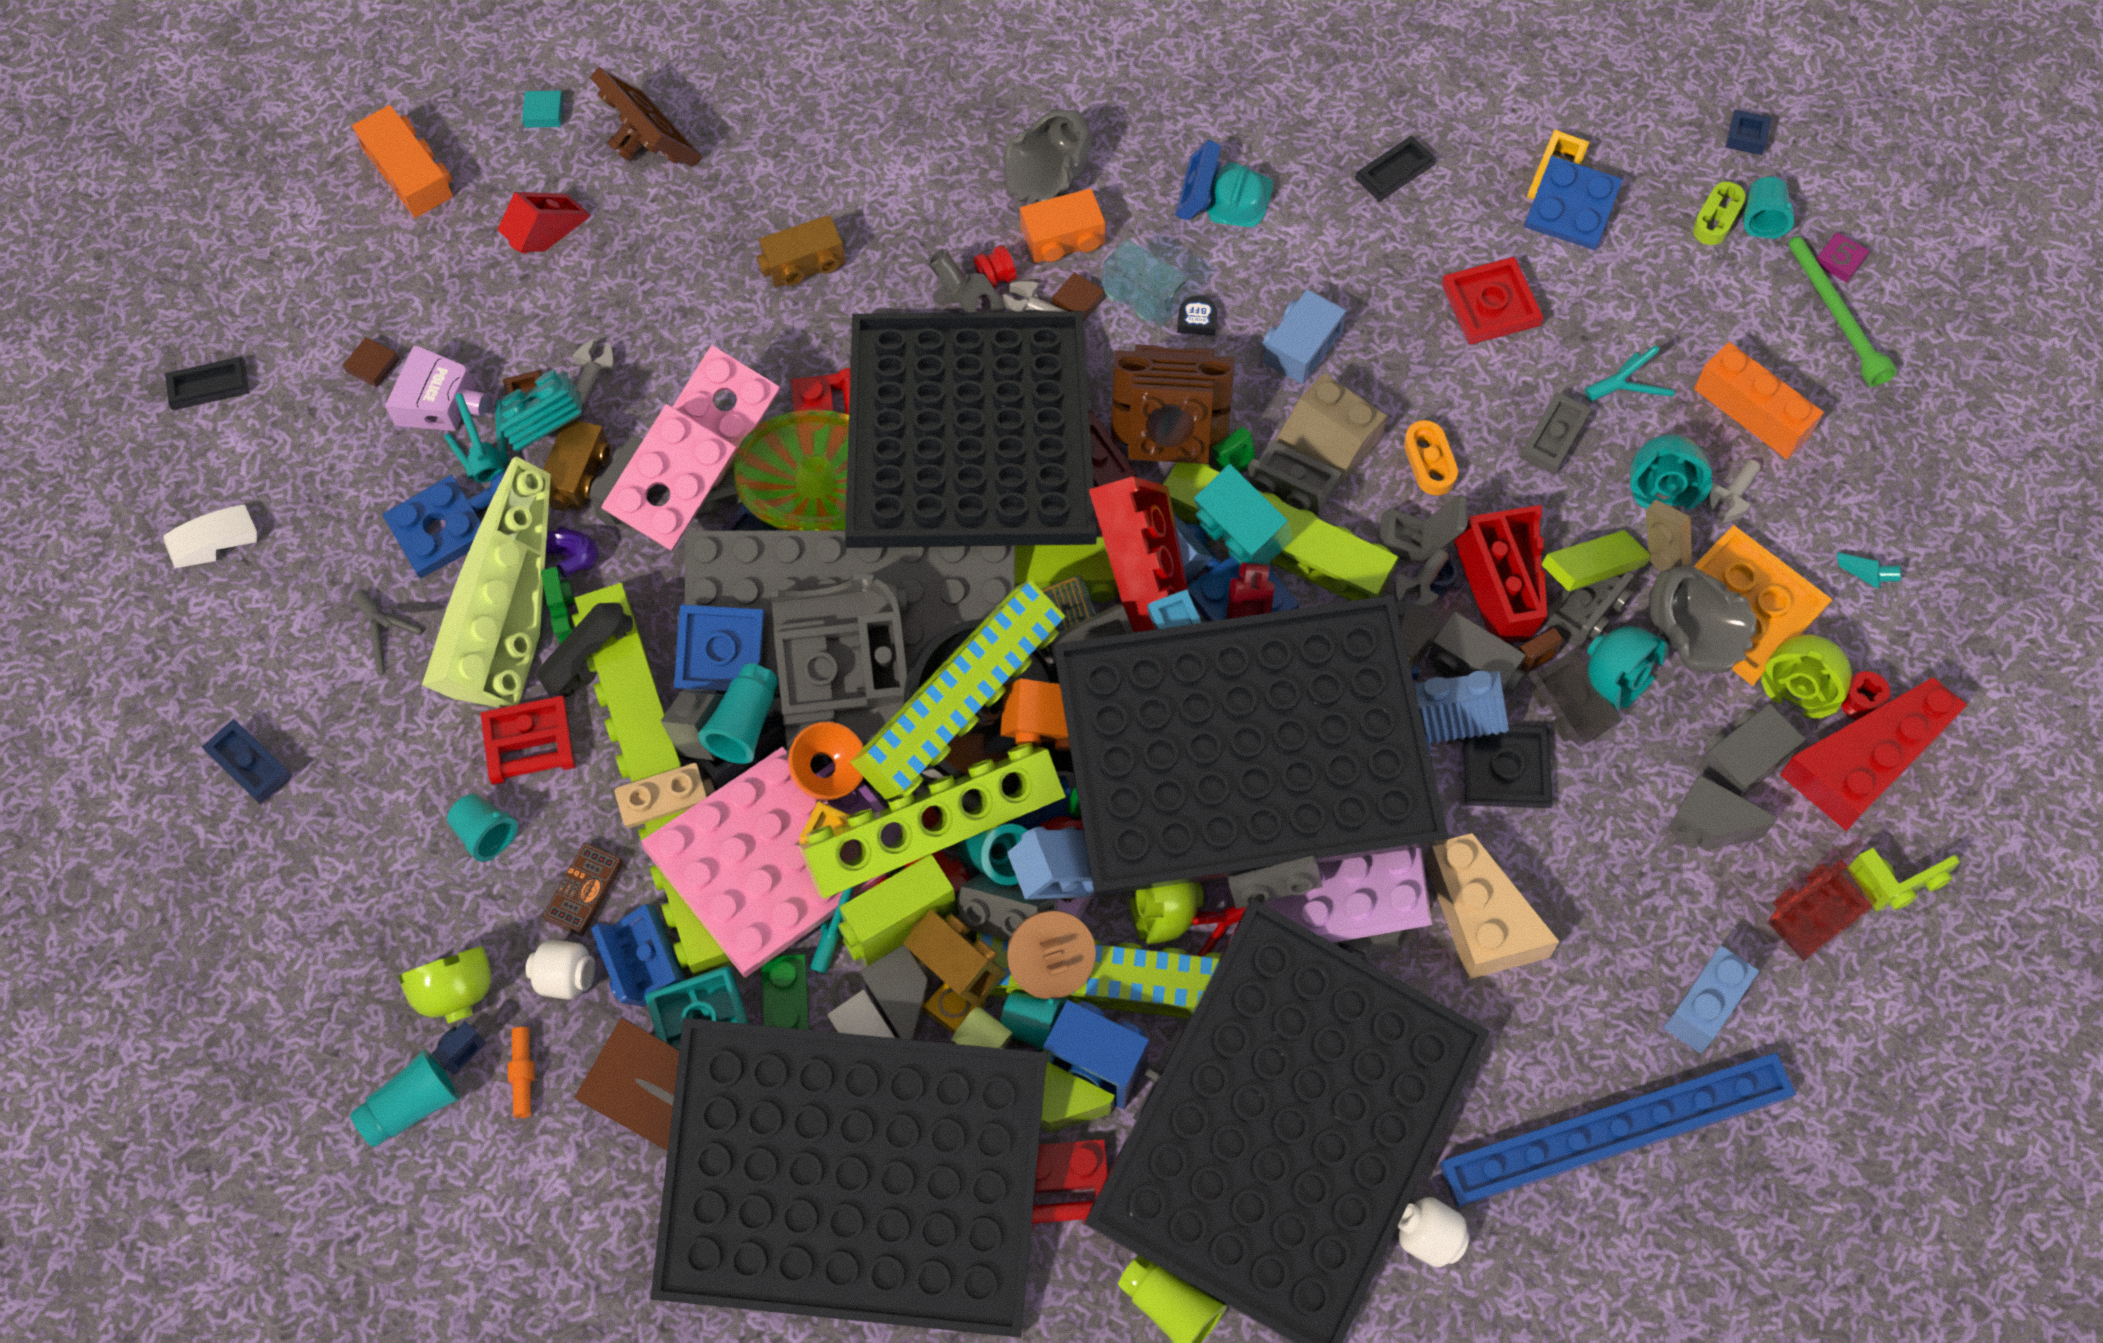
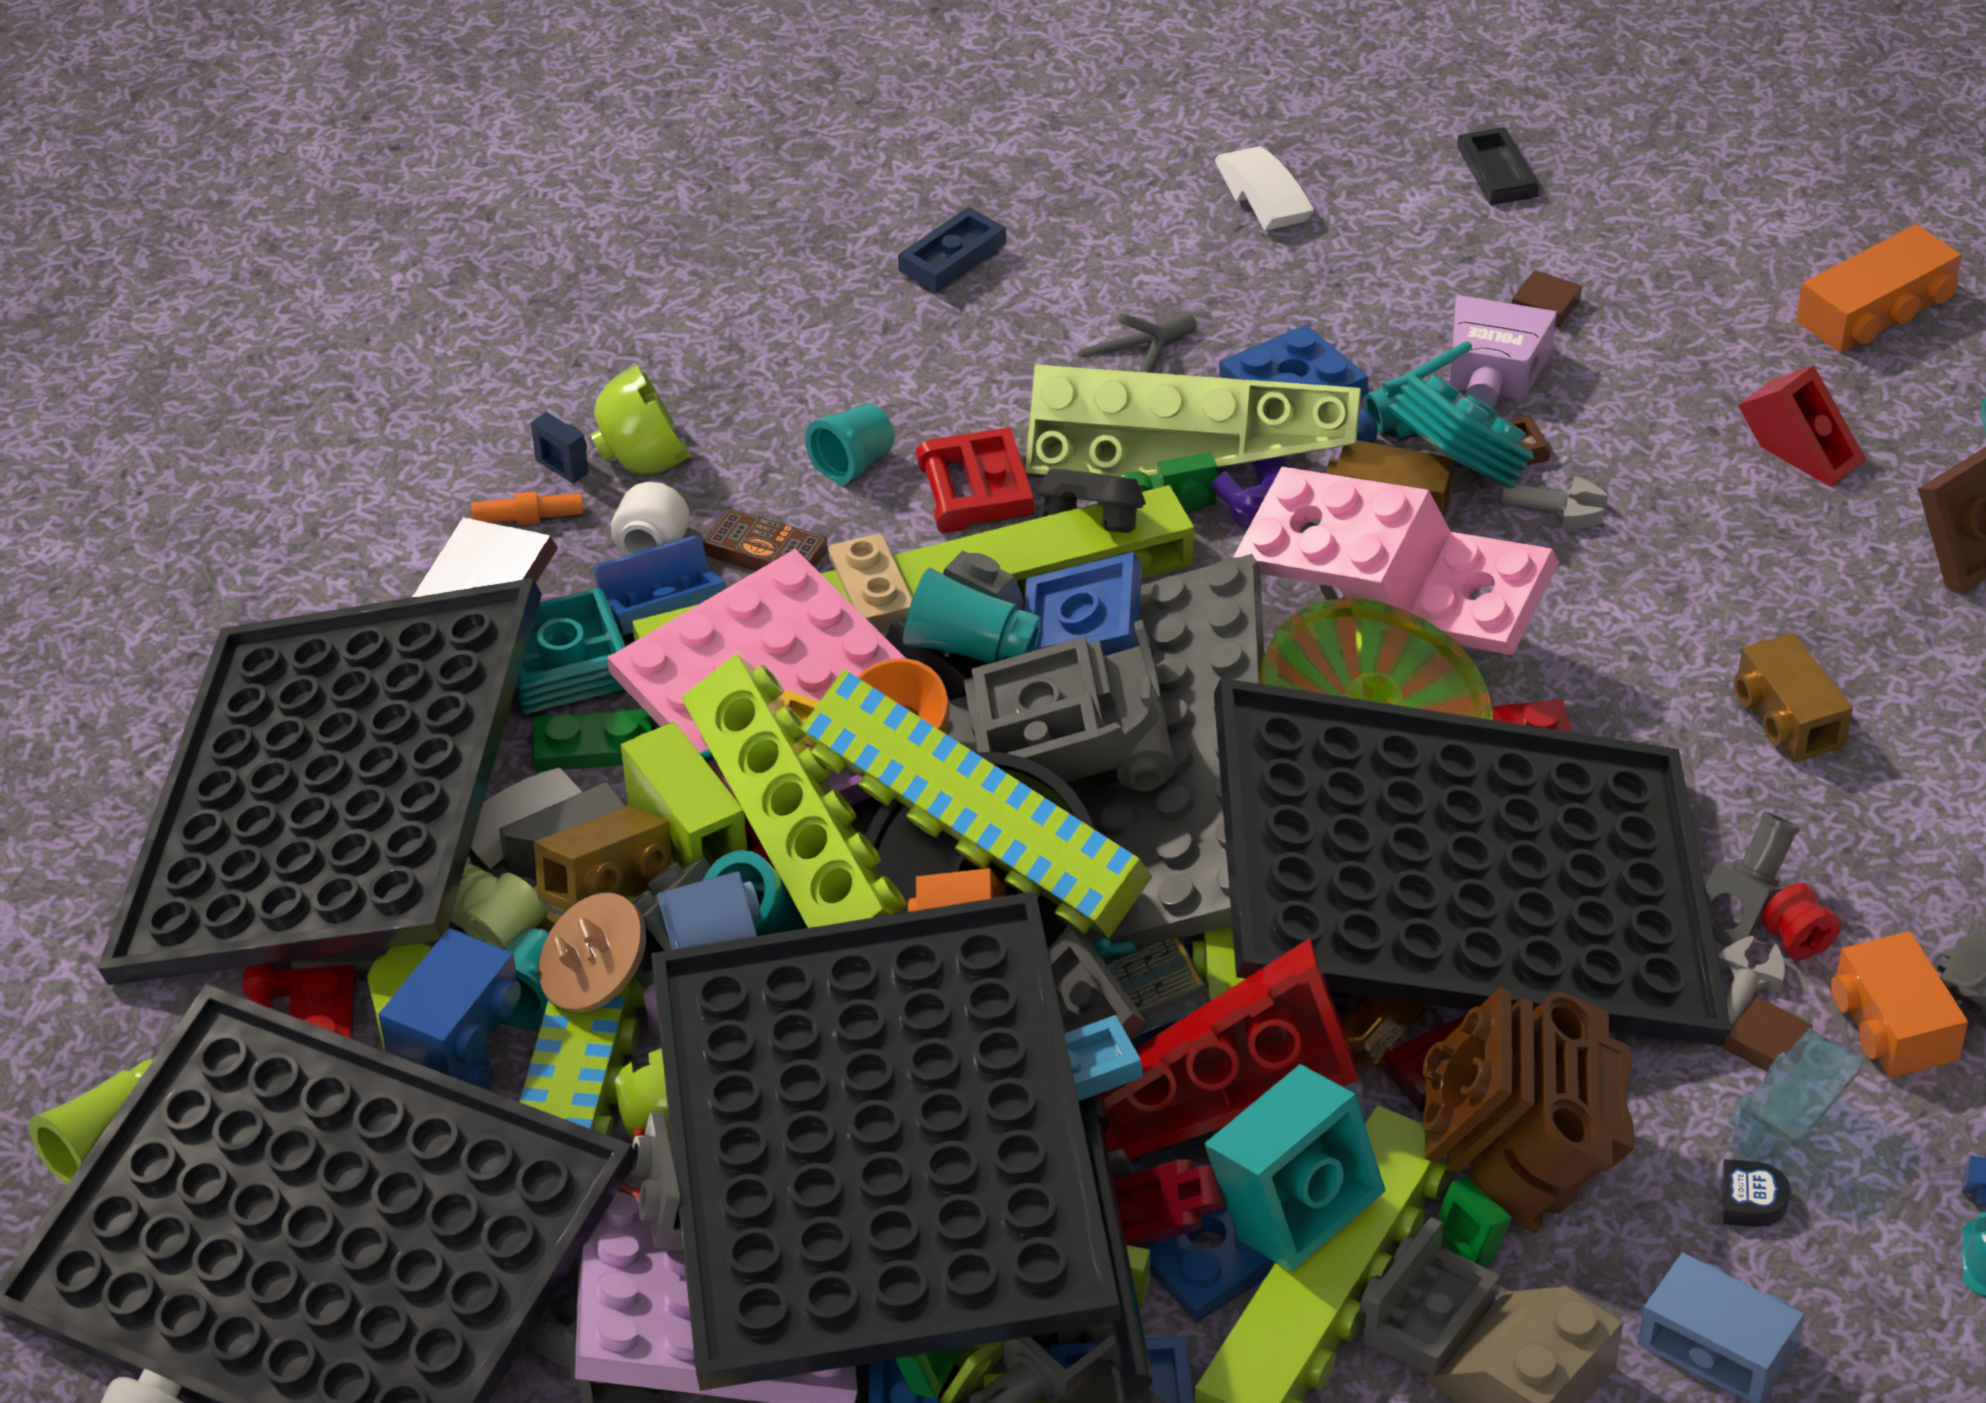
camera: 90 degrees right, 20 degrees down
(404, 1100) = (499, 408): teal plant -> none

